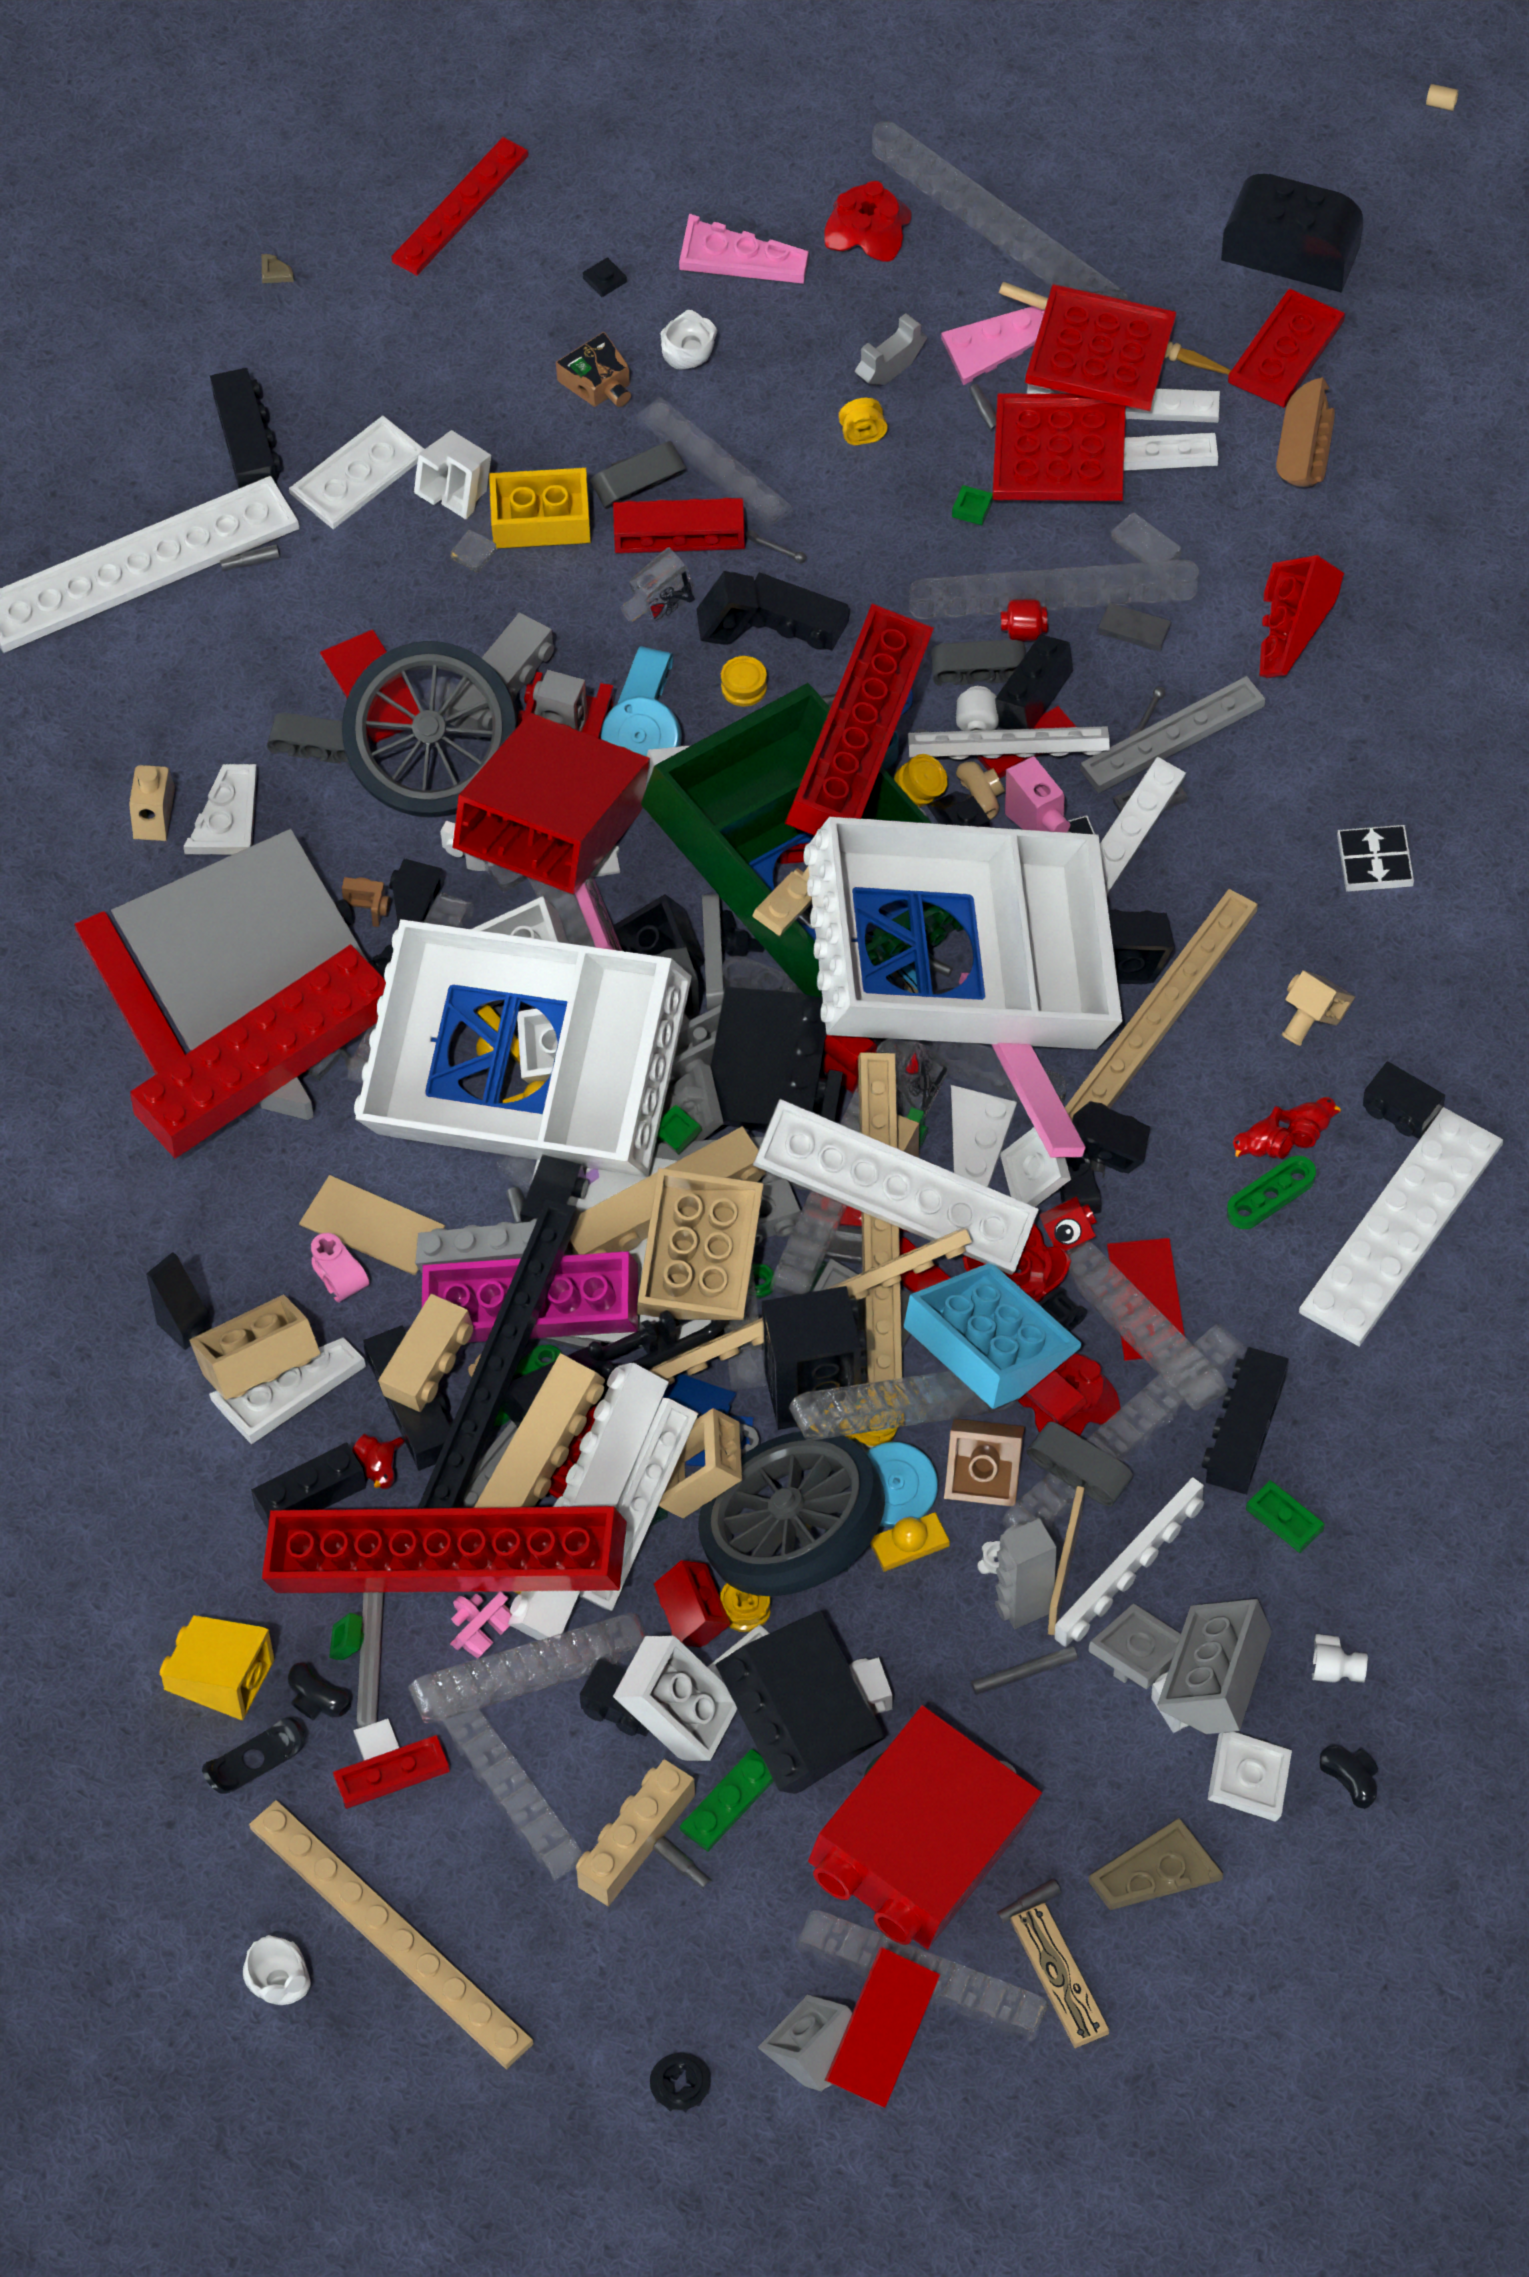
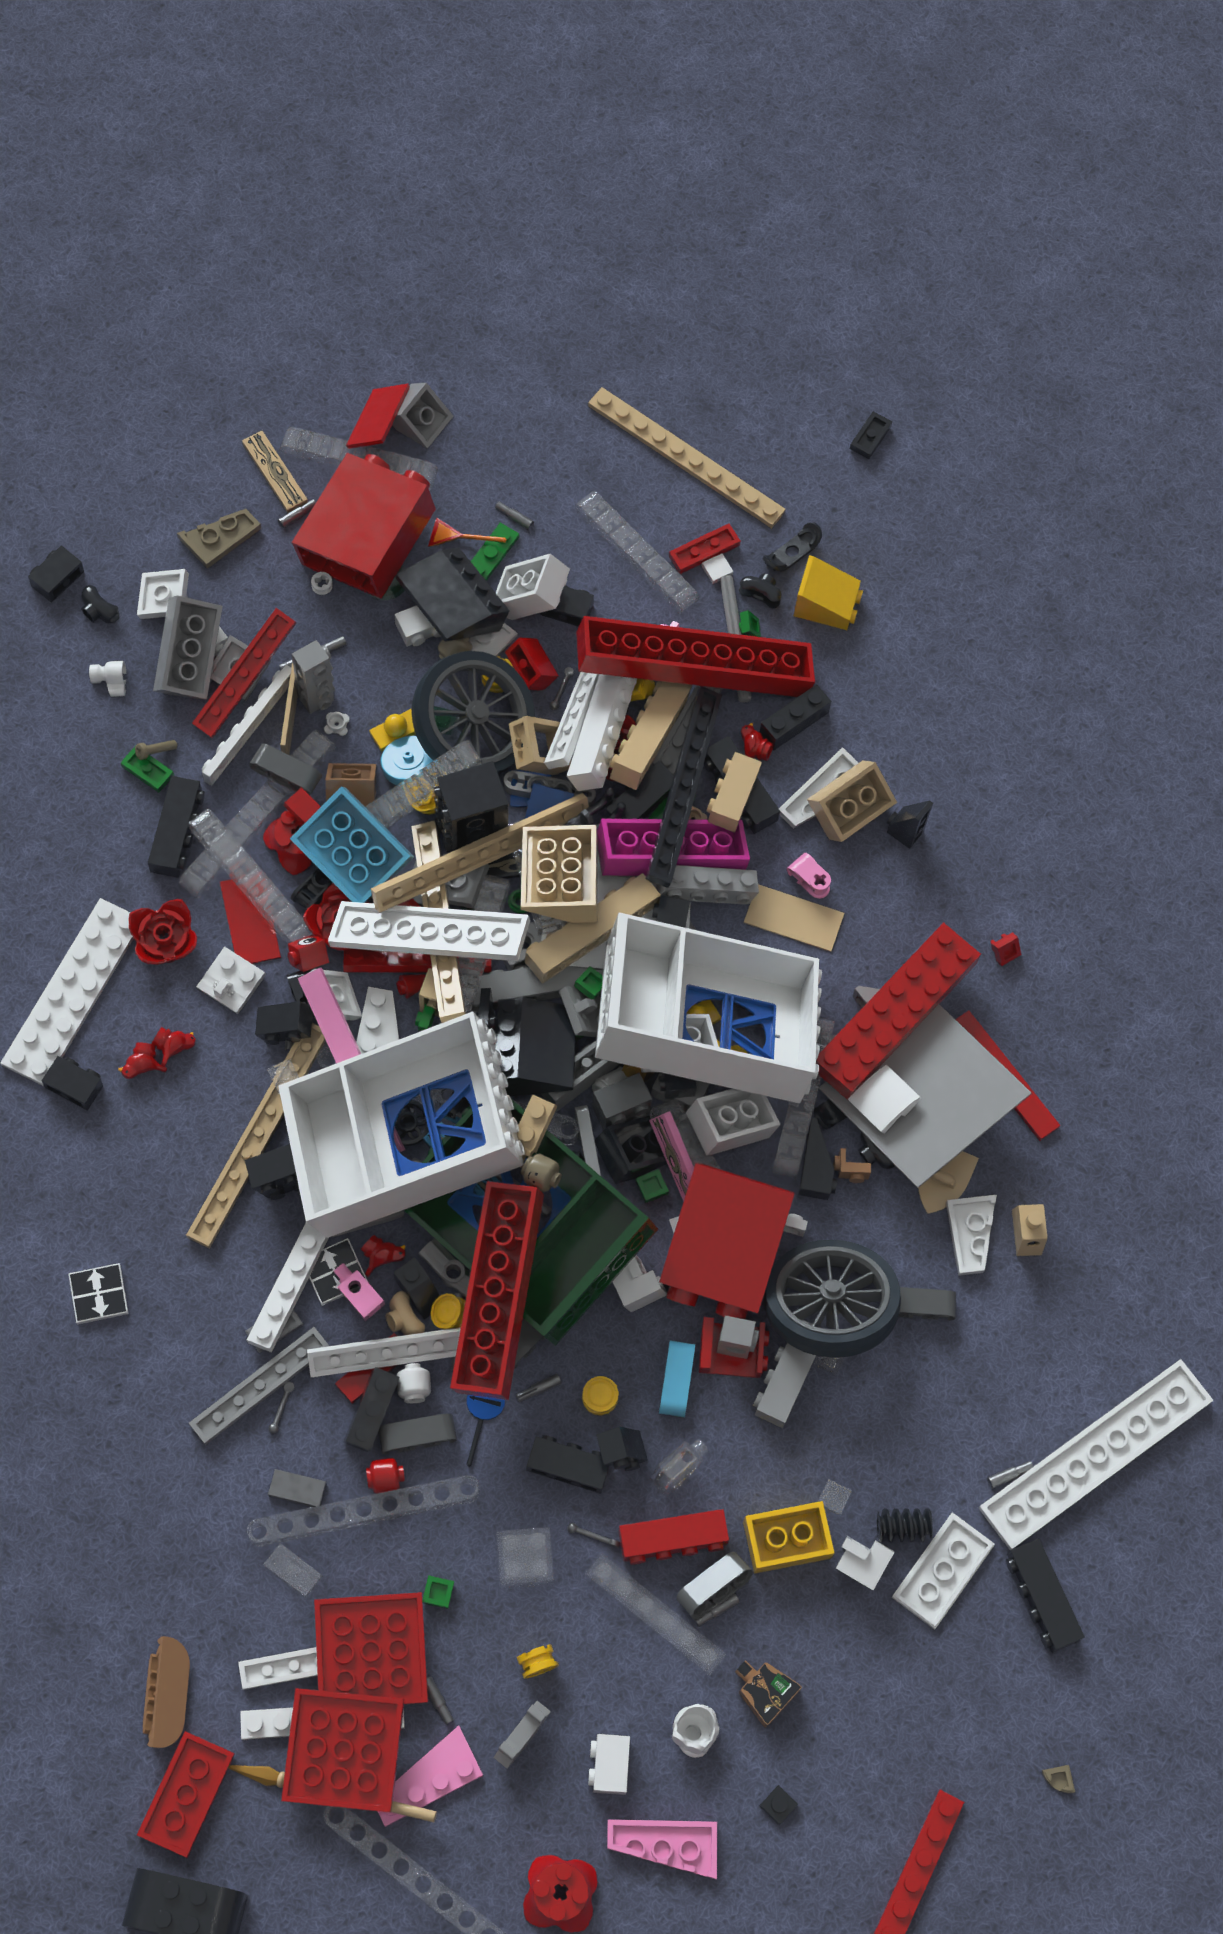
camera: 165 degrees right, 10 degrees up
(81, 1935) = (871, 435): none -> black plate
(85, 1145) = (1006, 948): none -> red tile
(276, 1971) = (748, 420): white hair -> none
(303, 939) = (884, 1098): none -> white slope
(348, 662) = (895, 1375): red piece -> none
(395, 511) = (904, 1524): none -> black piece
(526, 1668) = (637, 600): clear beam -> none
(632, 900) = (652, 1186): none -> green plate
(634, 1833) = (546, 519): tan brick -> none
(636, 1606) = (568, 672): none -> flat silver hinge
(641, 725) = (671, 1326): medium azure wheel -> none
(671, 2068) = (490, 382): black gear -> none
(784, 839) = (541, 1172): none -> dark tan head
(792, 324) = (611, 1764): none -> white brick
(795, 1842) = (444, 533): none -> orange piece
(863, 522) = (525, 1558): none -> clear brick
(1114, 1073) = (282, 1073): none -> clear plate
(1129, 1621) = (244, 673): none -> red plate
(1179, 1215) = (231, 980): none -> white hinge
(1276, 1180) = (171, 993): green plate -> none
(1282, 1253) = (171, 918): none -> red brick
(1288, 1527) = (143, 750): none -> dark tan piece
(1300, 599) = (164, 1520): red wedge -> none
(1315, 1000) = (136, 1147): tan brick -> none
(1417, 1828) = (56, 573): none -> black brick

